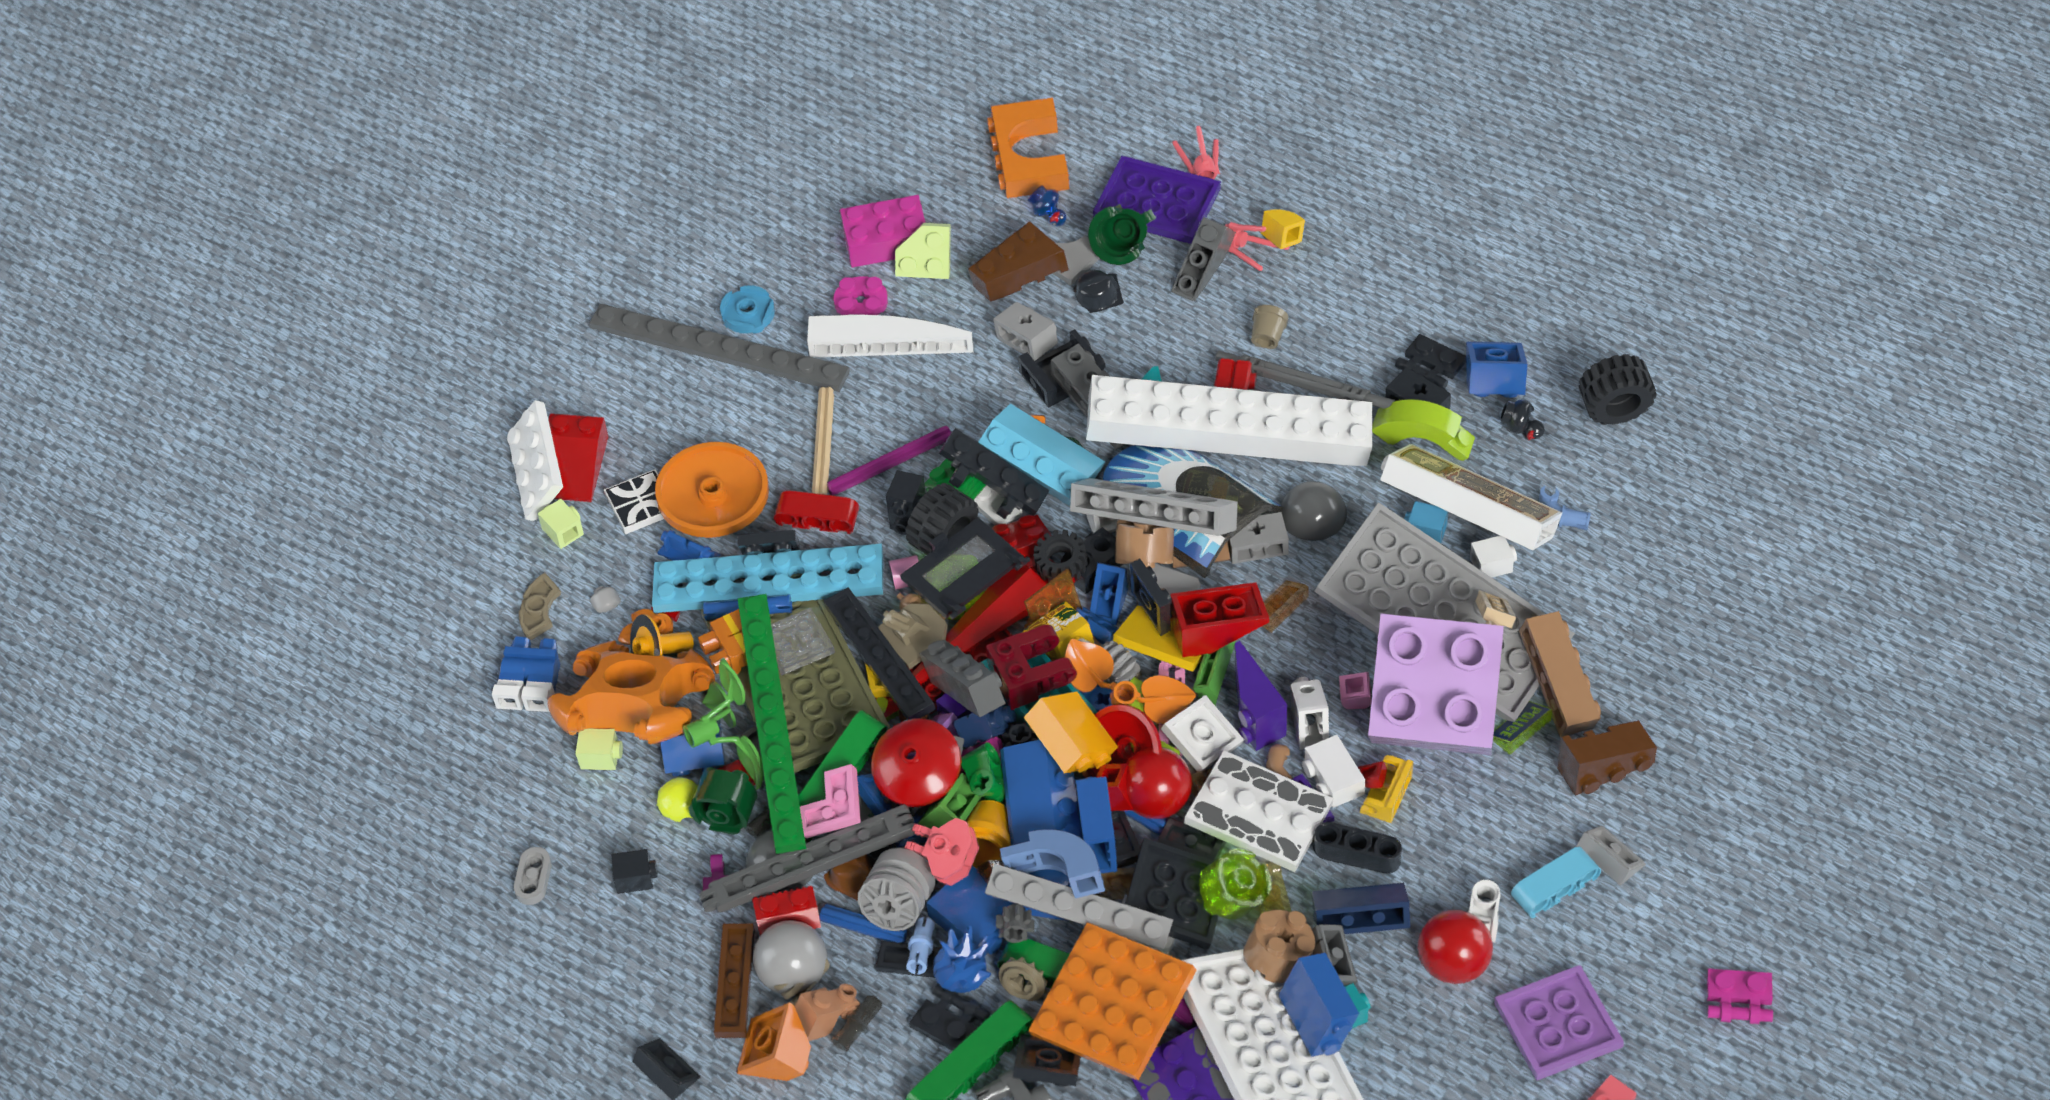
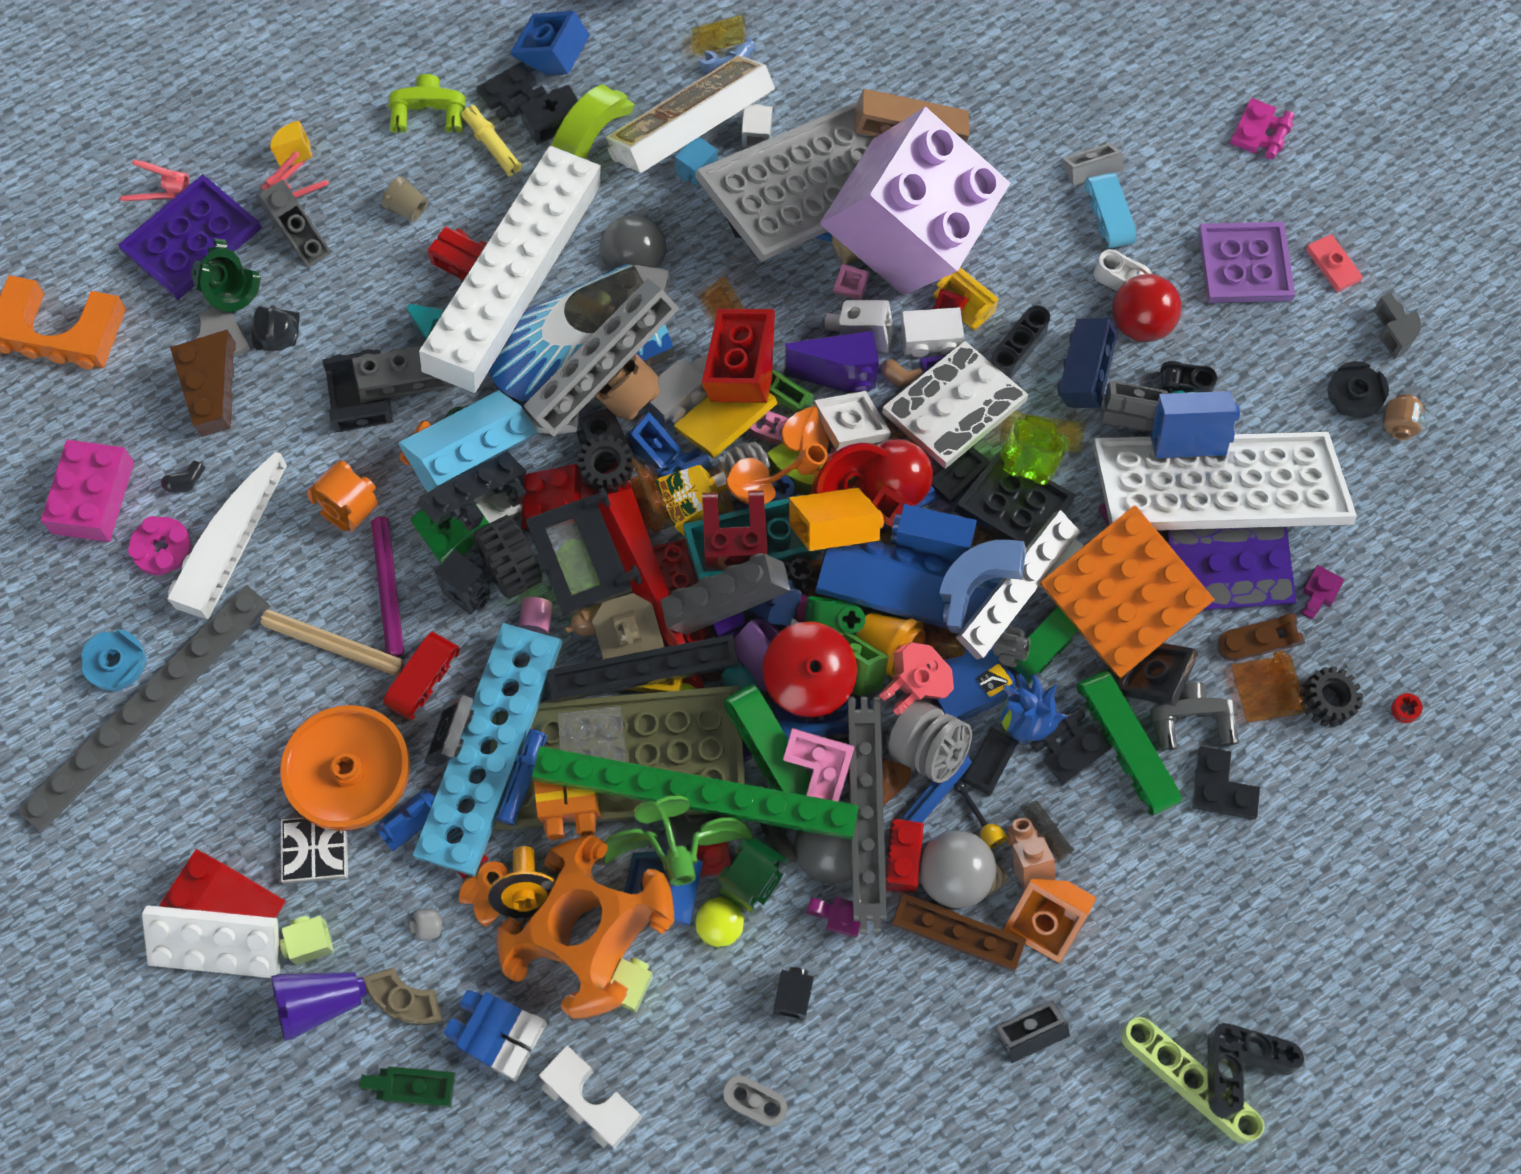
camera: 75 degrees left, 15 degrees up
(467, 638) = (411, 1086): none -> dark green hinge
(503, 737) = (609, 1120): none -> white arch
(511, 541) = (314, 999): none -> dark purple cone
(838, 976) = (990, 832): none -> hinge
(920, 945) = (992, 743): light blue pin -> none
(925, 253) = (143, 460): yellowish green plate -> none
(925, 290) = (183, 481): none -> black arm
(951, 393) = (343, 496): none -> orange brick
(980, 924) = (994, 680): none -> sticker
(1016, 985) = (1061, 664): dark tan gear -> none
(1025, 330) = (295, 404): light grey brick -> none
(1045, 203) = (140, 333): clear blue animal -> none
(1150, 596) = (699, 399): black plate -> none
(1278, 943) = (1114, 435): medium nougat brick -> none
(1309, 381) = (486, 192): dark grey axle -> none
(1373, 358) = (485, 132): none -> light yellow pin
(1385, 1003) = (1187, 377): none -> black piece
(1390, 301) = (426, 94): none -> lime connector
(1495, 609) = (865, 123): tan plate -> none
(1517, 416) = (615, 48): black animal -> none
(1581, 492) = (719, 35): none -> clear yellow plate
(1605, 756) = (1004, 125): reddish brown wedge -> none

